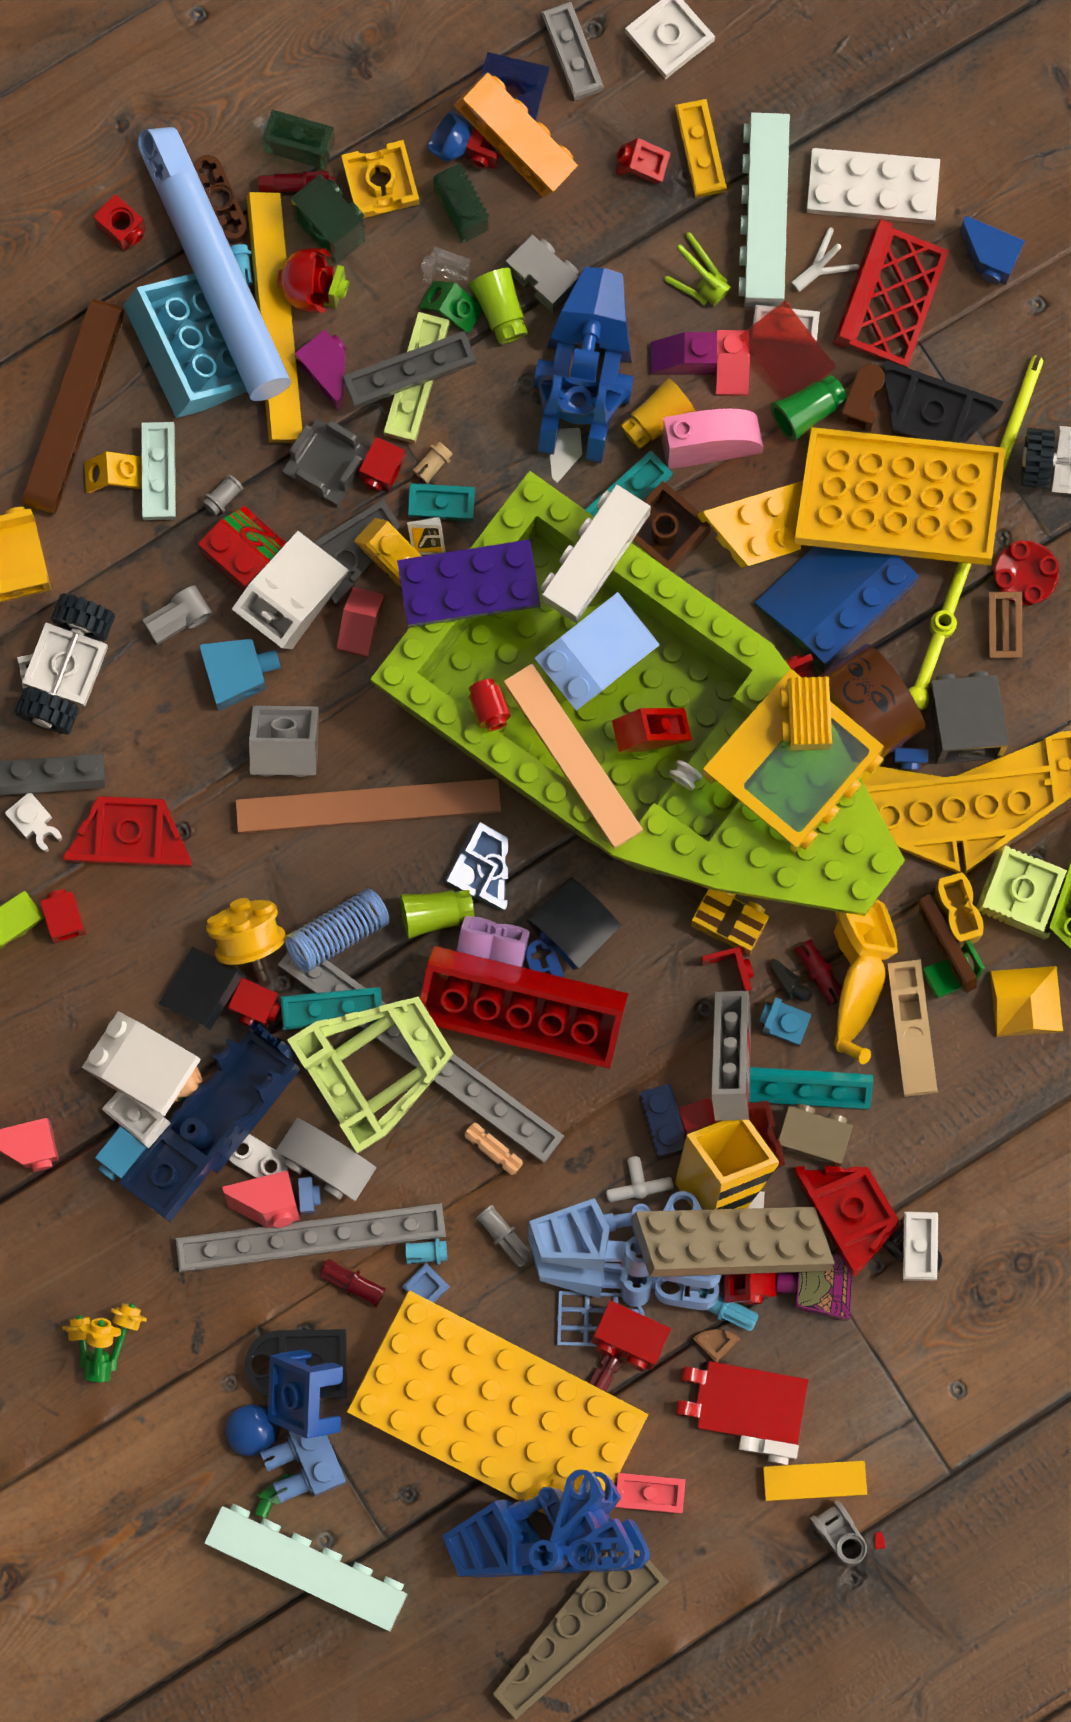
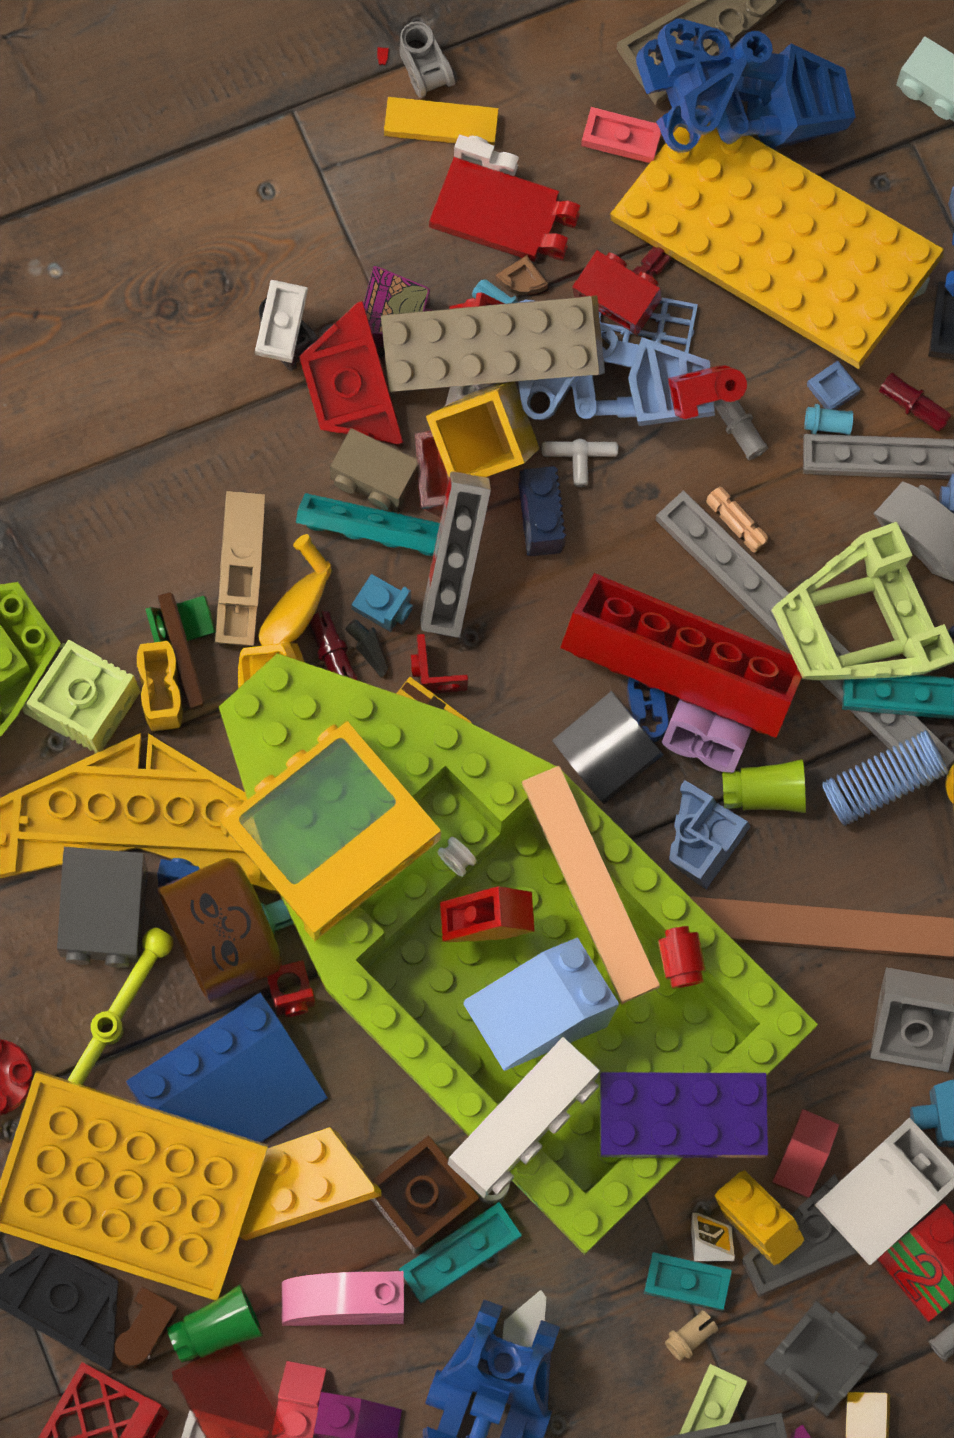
camera: 175 degrees left, 5 degrees down
(381, 465) = (755, 1339): red brick -> none
(539, 1230) = (705, 387): none -> red leg
(647, 419) = (404, 1347): yellow plant -> none
(697, 1115) = (504, 505): red brick -> none
(808, 713) = (305, 865): yellow brick -> none
(1005, 624) = (26, 1046): medium nougat tile -> none
(1026, 1001) = (102, 581): yellow slope -> none

